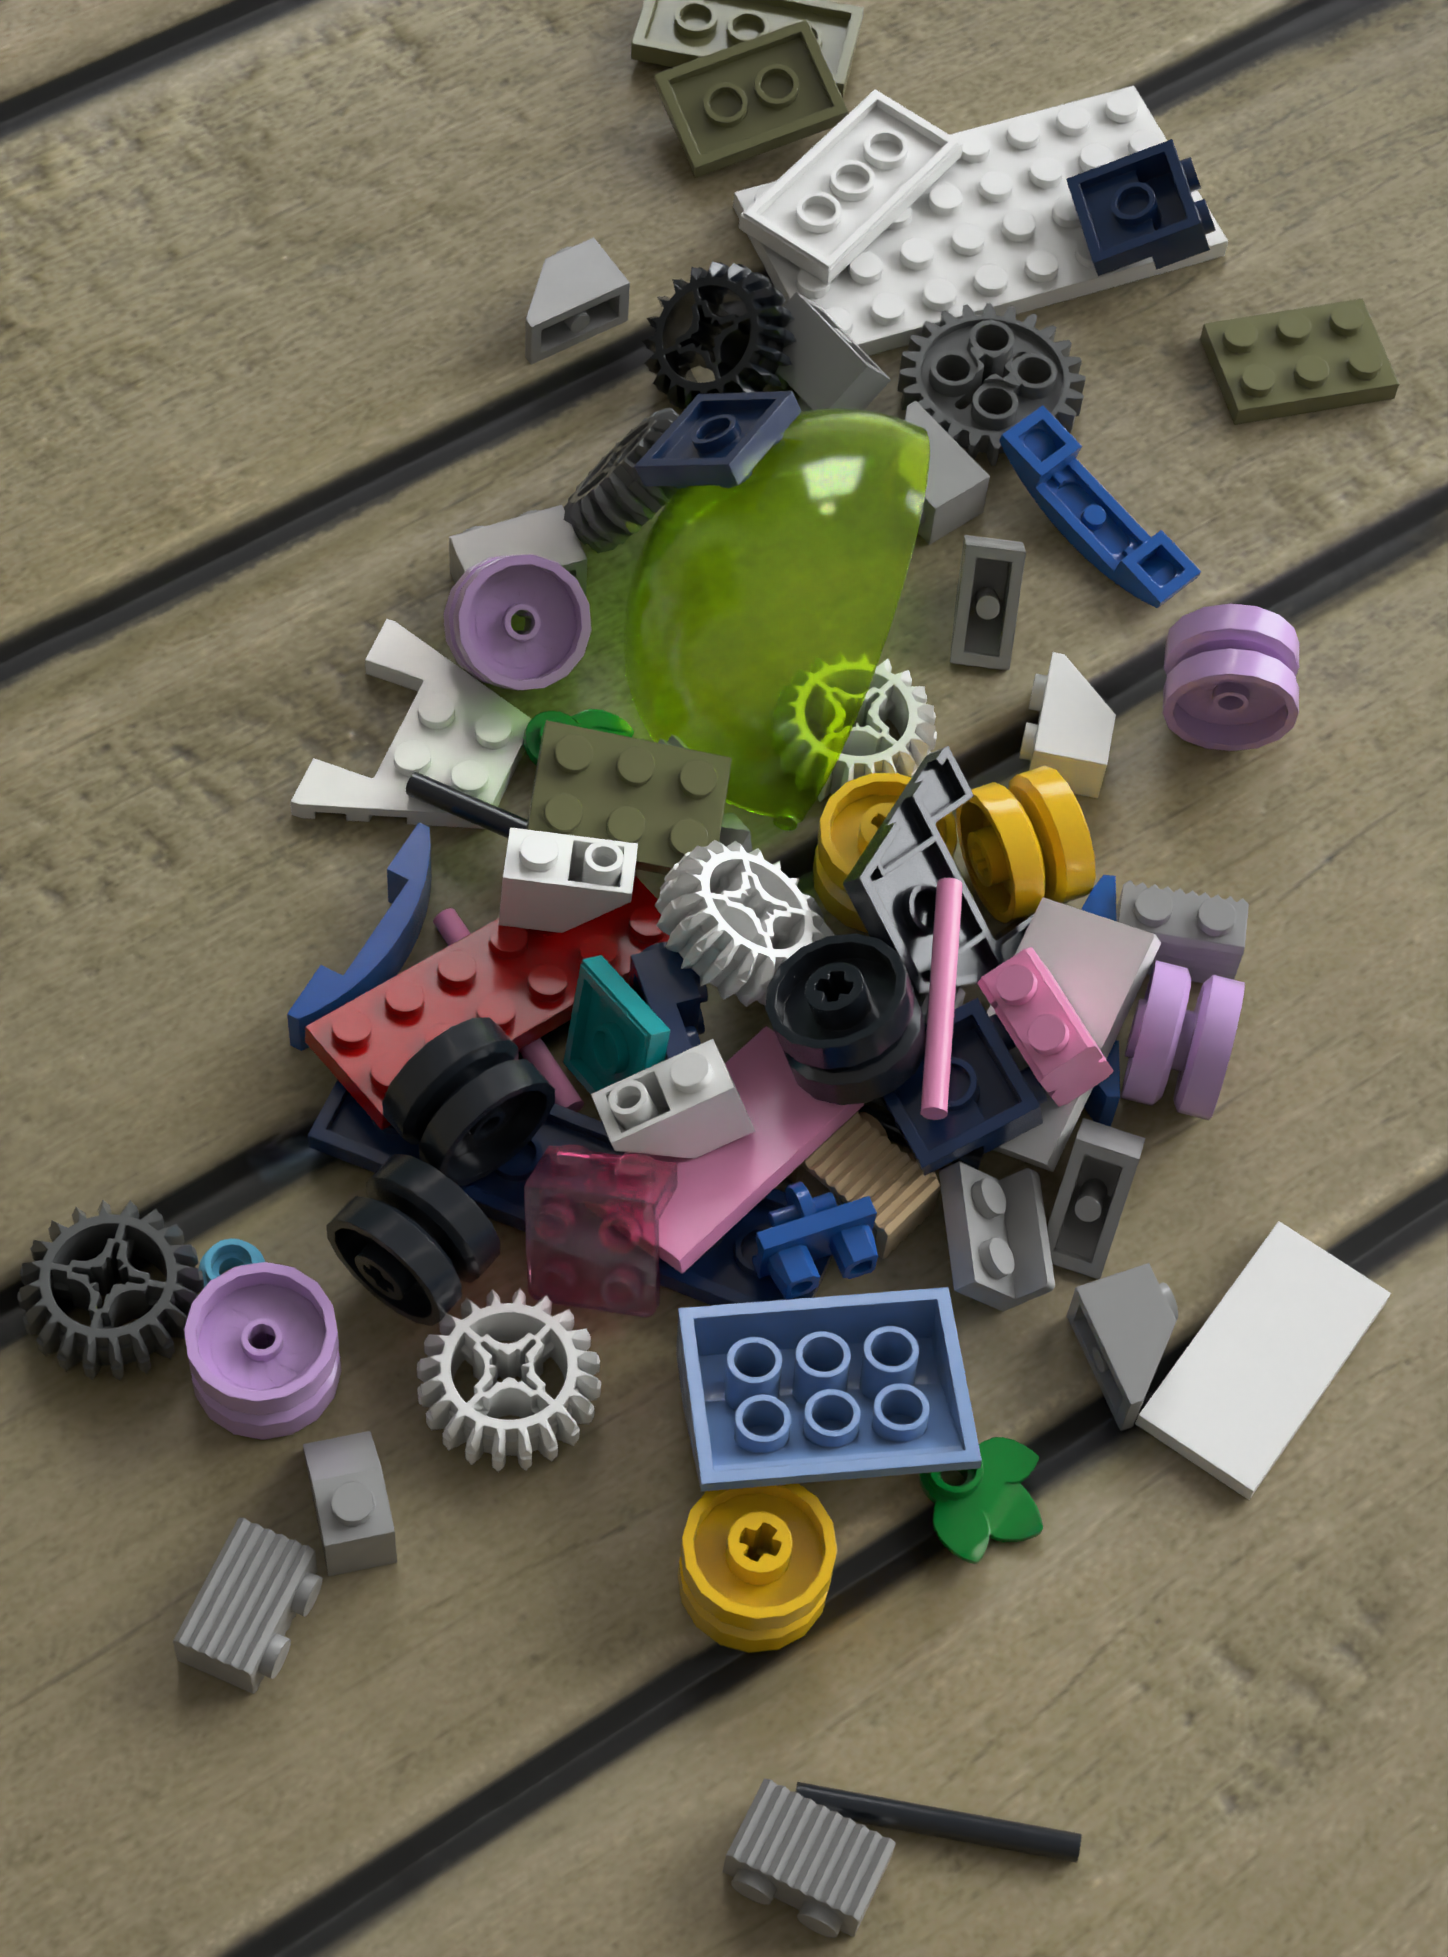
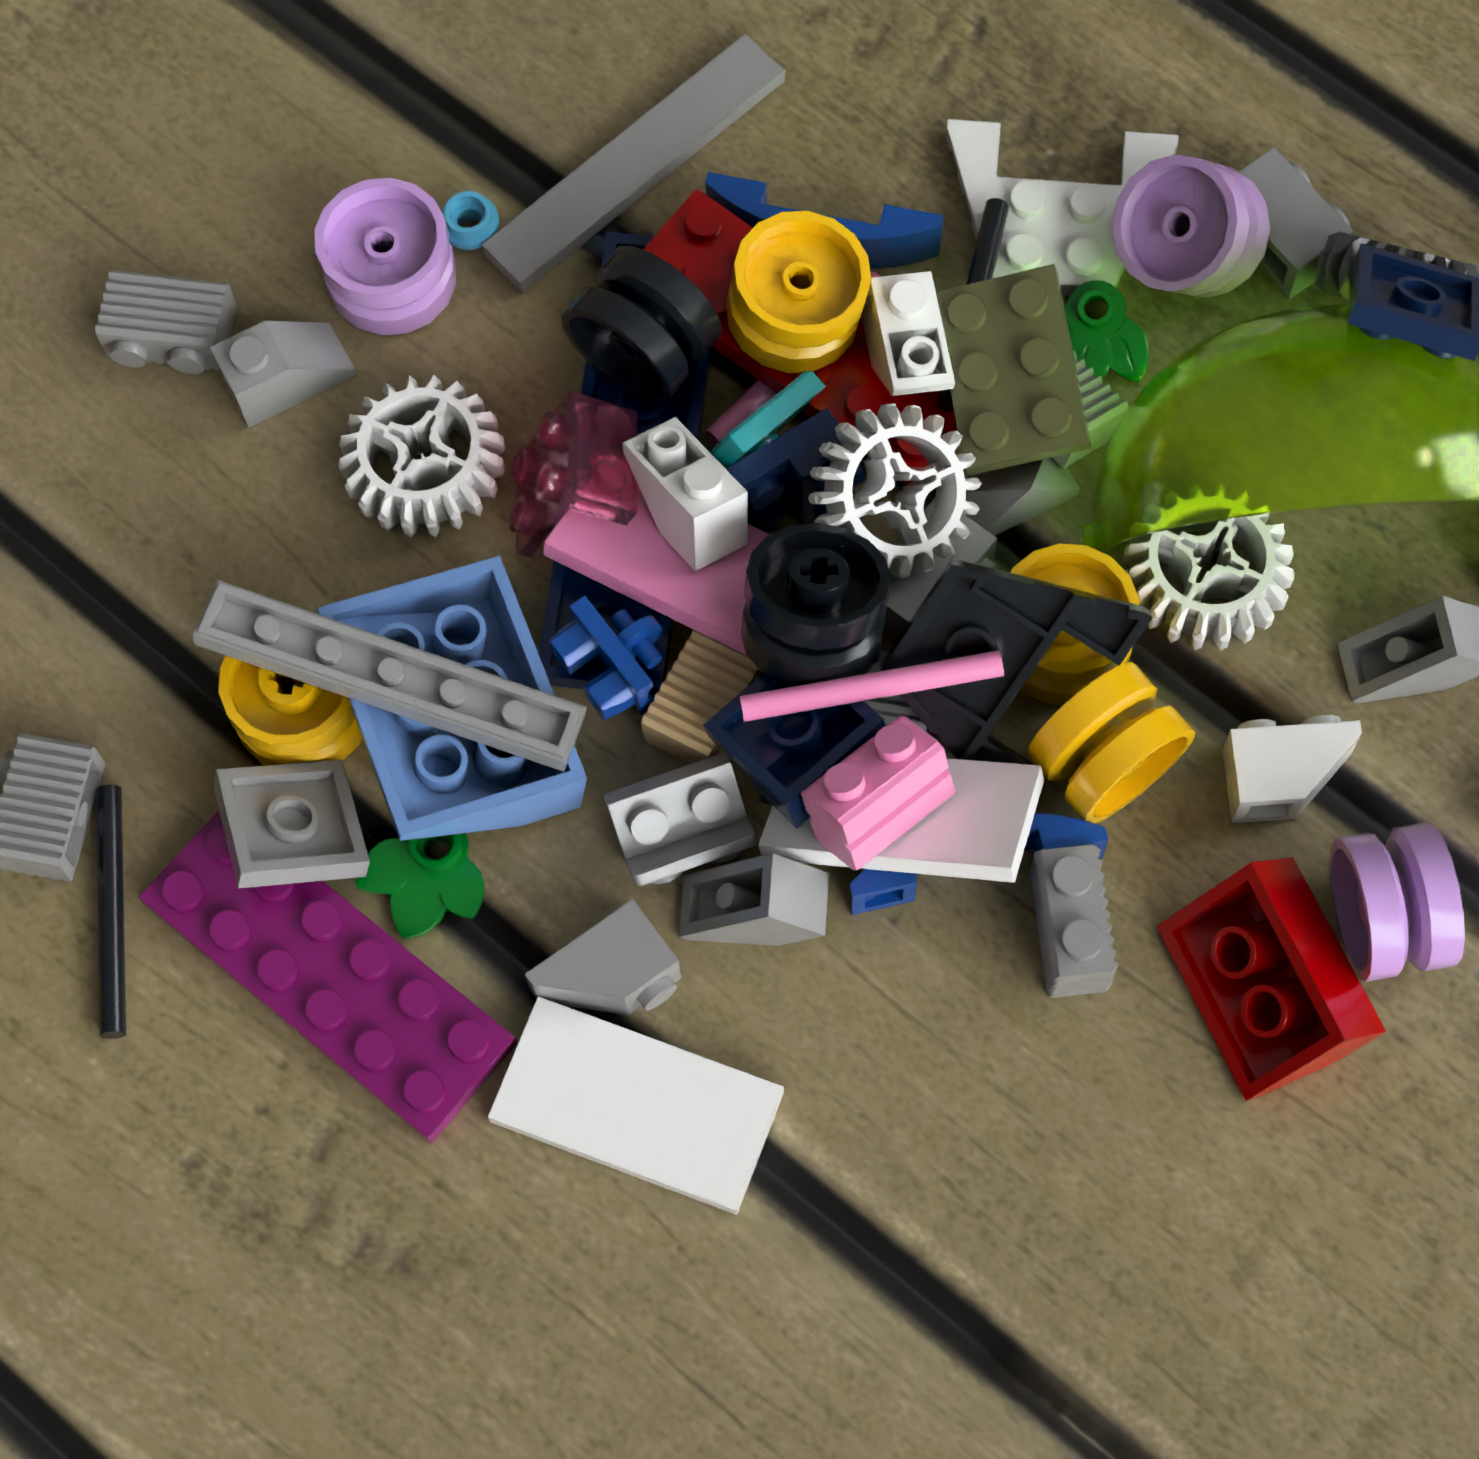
camera: 85 degrees right, 10 degrees up
(63, 1272) = (456, 123): dark grey gear -> none
(222, 1099) = (633, 163): none -> light grey tile
(414, 1239) = (511, 332): black wheel -> none
(487, 947) = (797, 291): none -> yellow wheel
(798, 1433) = (389, 675): none -> light grey tile
(905, 1597) = (290, 823): none -> light grey plate
(1054, 1618) = (335, 982): none -> magenta plate
(1182, 1040) = (934, 939): lavender wheel -> none
(1264, 804) = (1270, 977): none -> red slope

